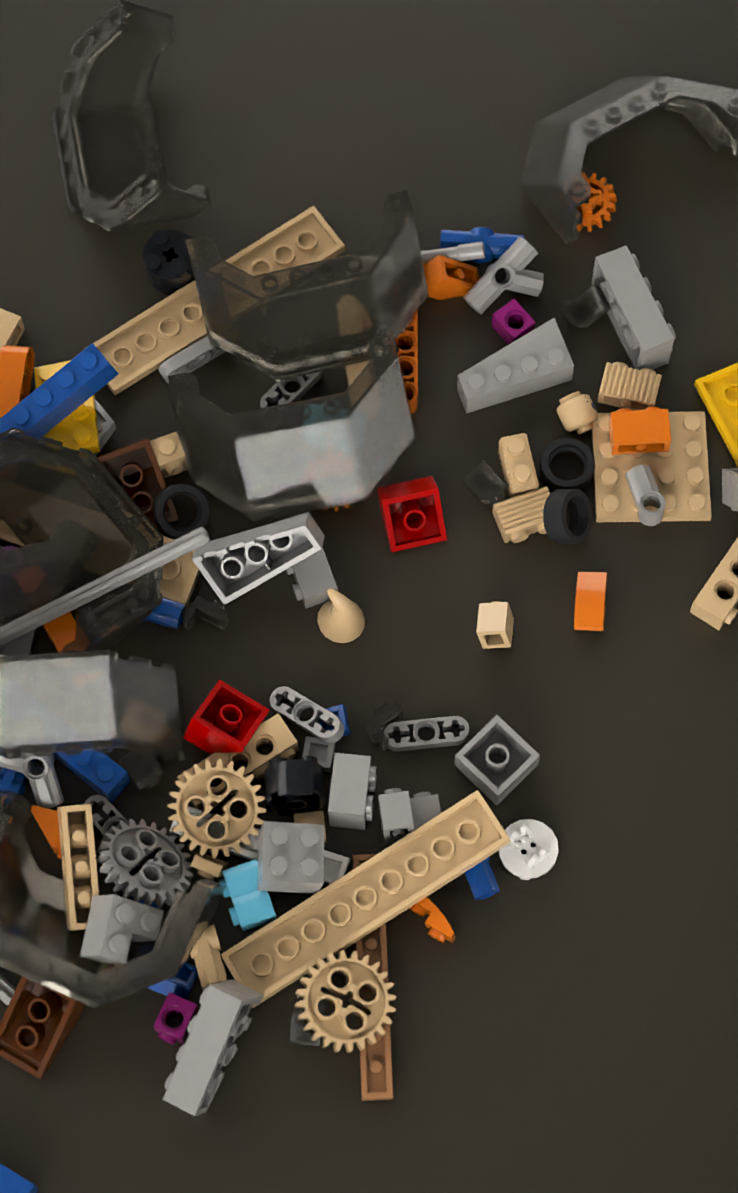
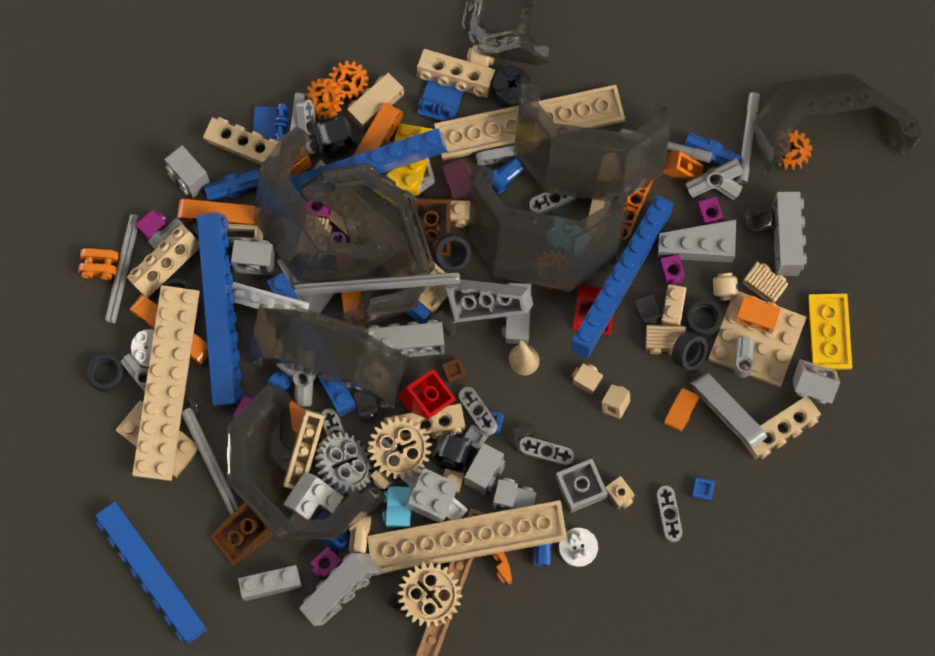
camera: 20 degrees right, 5 degrees up
(79, 318) = (439, 101): none -> blue hinge
(85, 272) = (464, 70): none -> tan brick
(105, 1081) = (270, 583): none -> light grey brick
(111, 243) = (476, 58): none -> tan head
(148, 411) = (458, 180): none -> clear pink brick
(186, 644) = (414, 337): none -> light grey brick
(214, 376) = (506, 174): none -> blue piece
(249, 673) = (454, 370): none -> reddish brown plate
(432, 453) = (621, 277): none -> blue brick
(440, 610) = (587, 378): none -> tan brick
(490, 409) = (675, 263): none -> magenta brick
(511, 171) = (752, 108): none -> light grey piece
(555, 749) = (620, 493): none -> tan brick
(653, 765) = (666, 529): none -> light grey beam
(657, 575) = (728, 410): none -> light grey beam
(667, 698) = (703, 489): none -> blue plate

